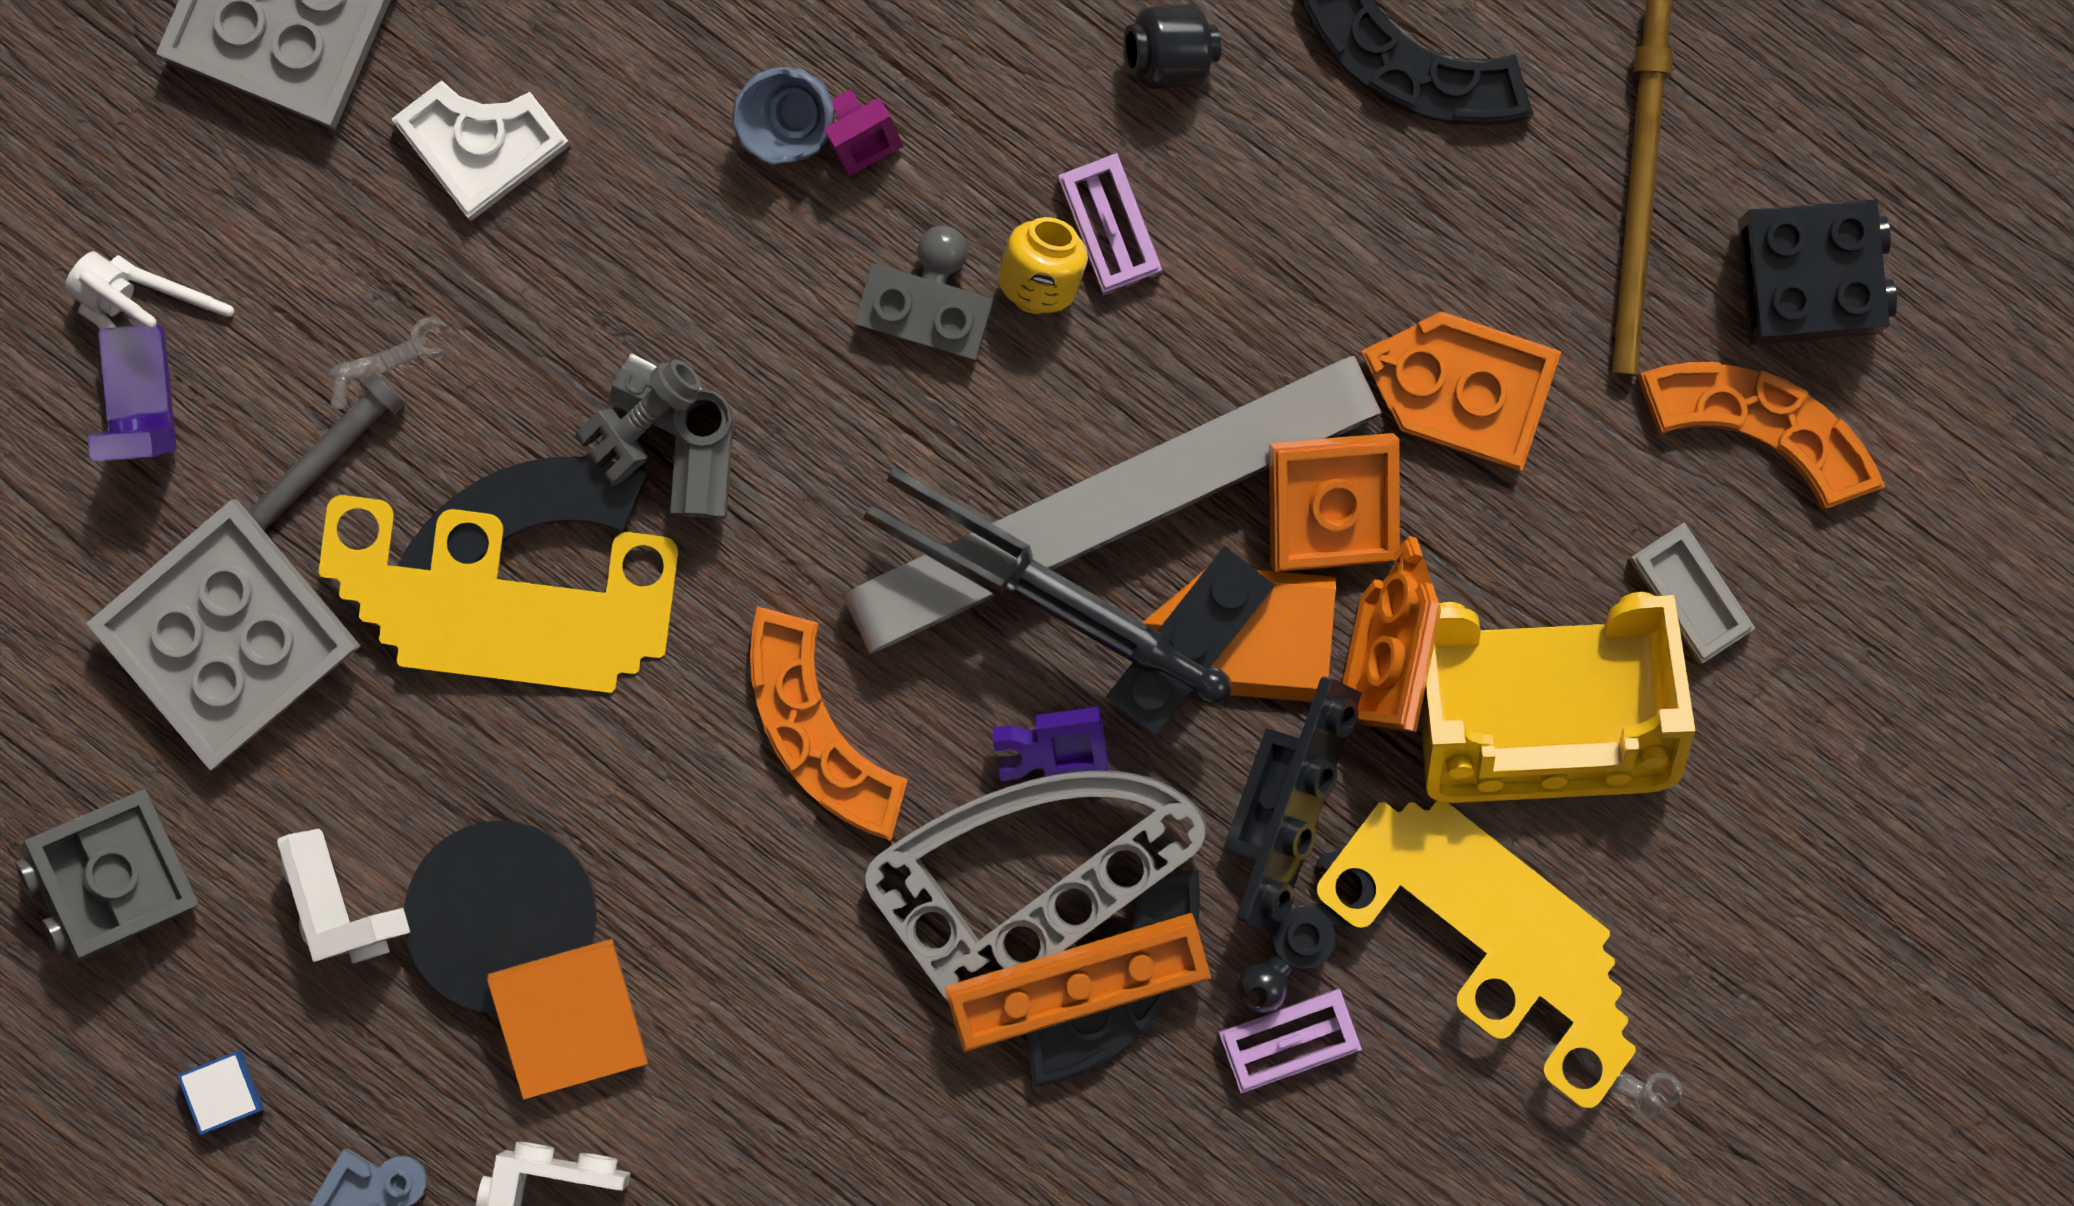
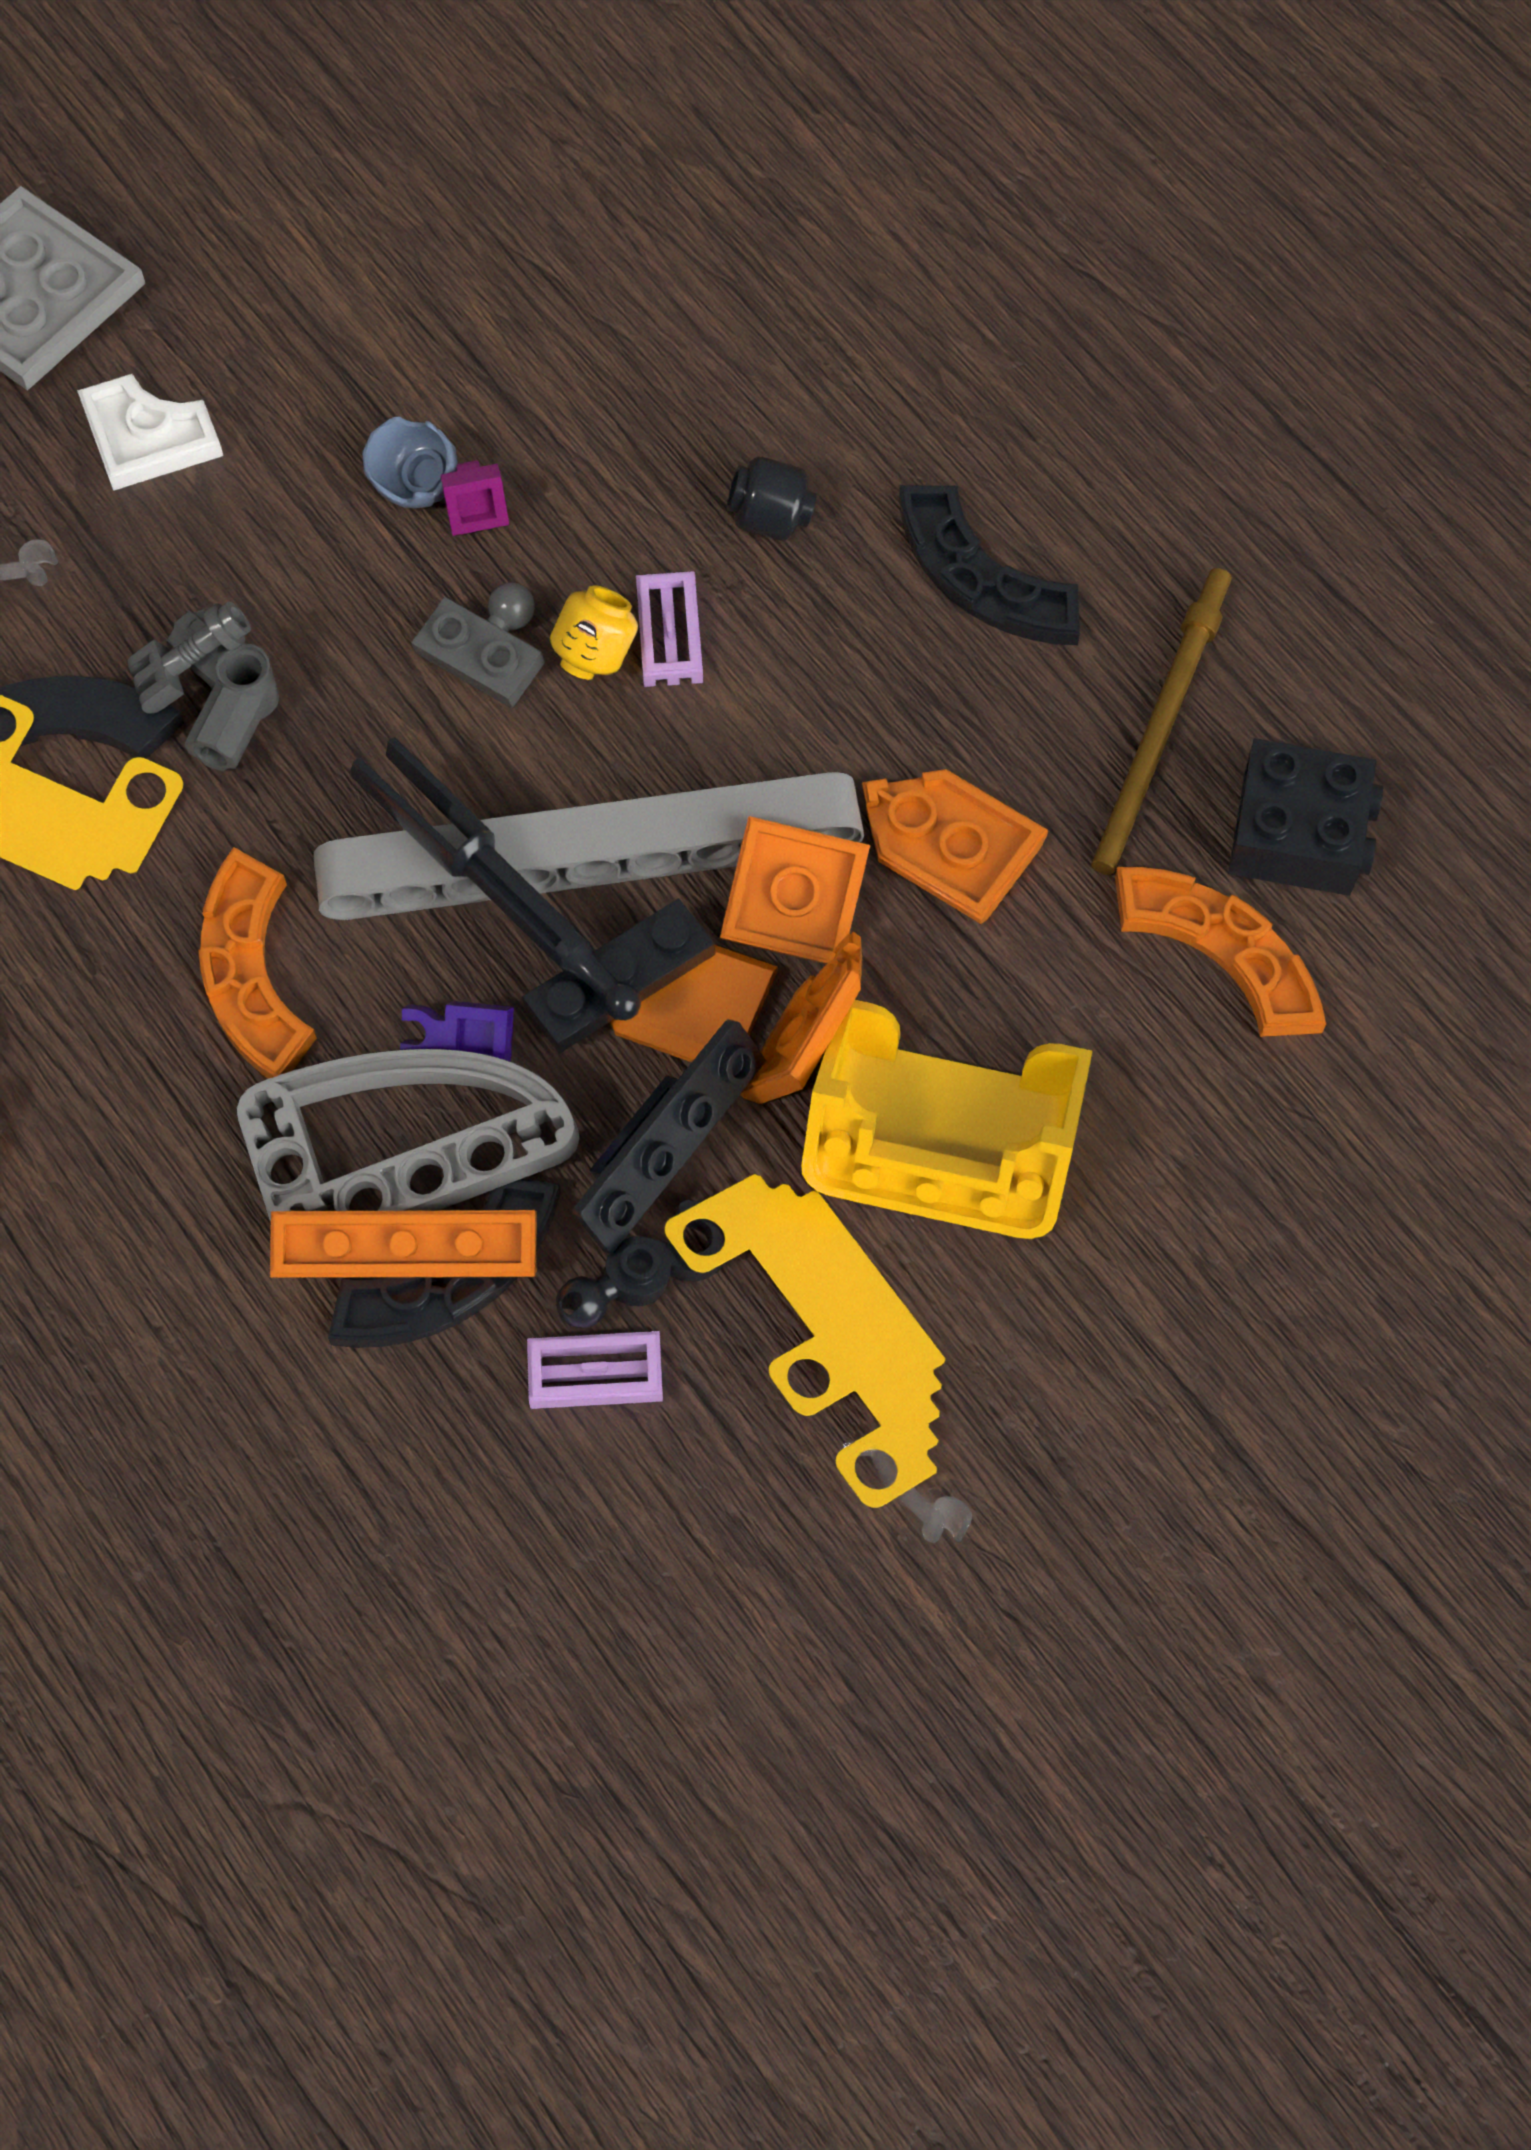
camera: 15 degrees right, 20 degrees down
(1705, 605) = (1118, 1075): light grey tile -> none

